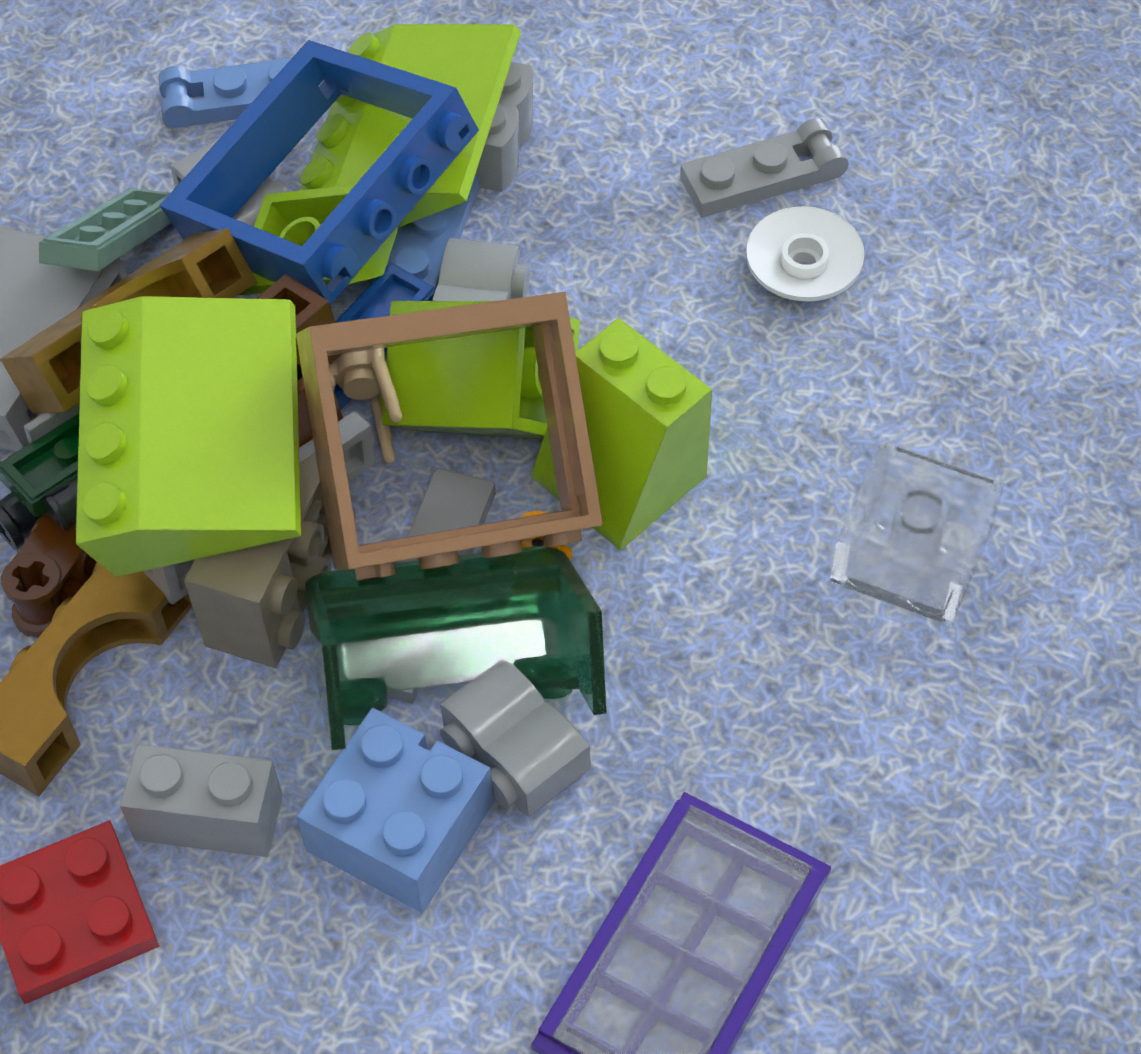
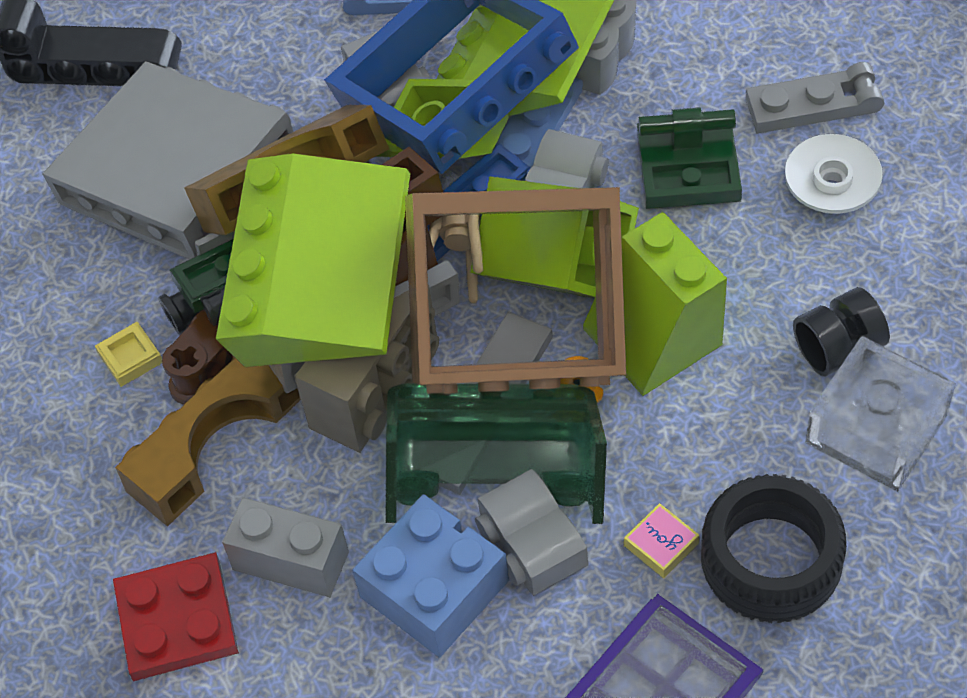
camera: 15 degrees right, 0 degrees up
(106, 231) = (281, 95): sand green tile -> none
(627, 254) = (689, 158): none -> dark green plate
(676, 725) = (661, 540): none -> tile
(829, 656) = (782, 500): none -> black tyre
(841, 444) = (831, 333): none -> black wheel

